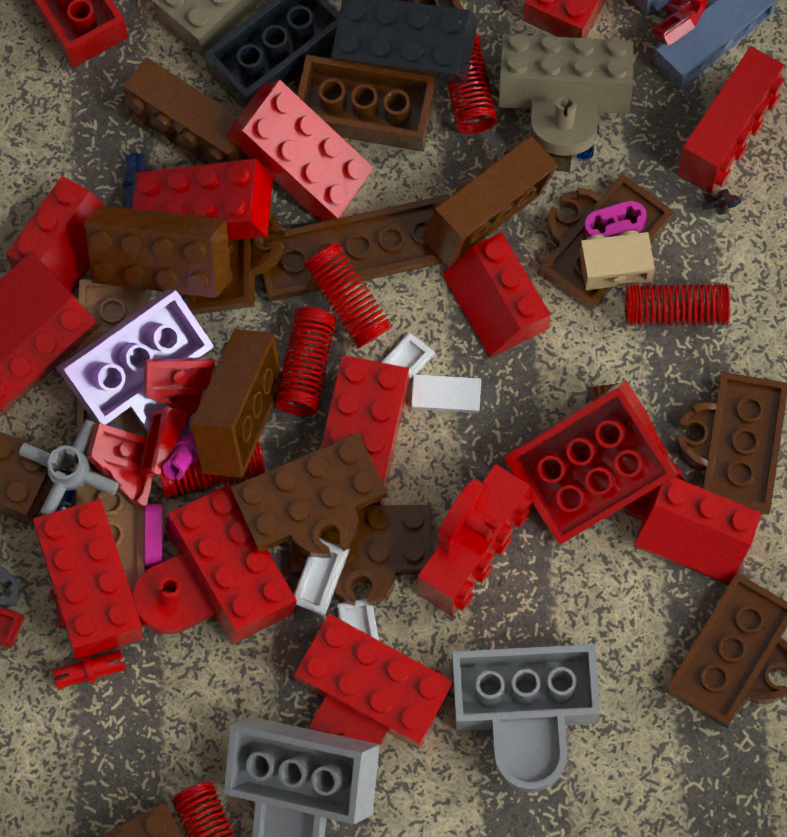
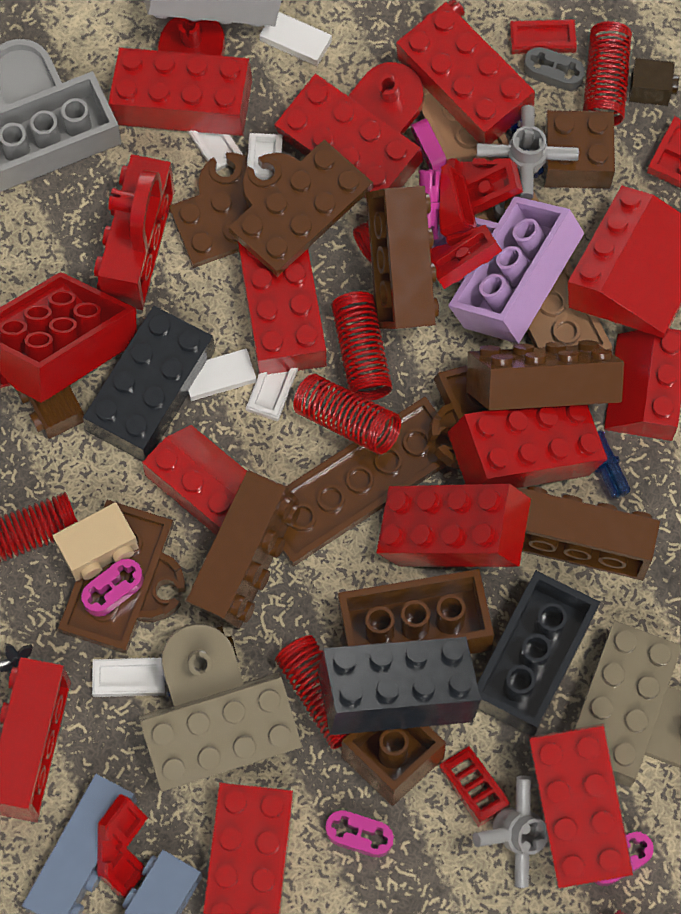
camera: 155 degrees right, 0 degrees up
(225, 704) = (296, 39): none -> white tile
(515, 397) = (149, 383): none -> black brick
(626, 158) = (128, 677): none -> white tile

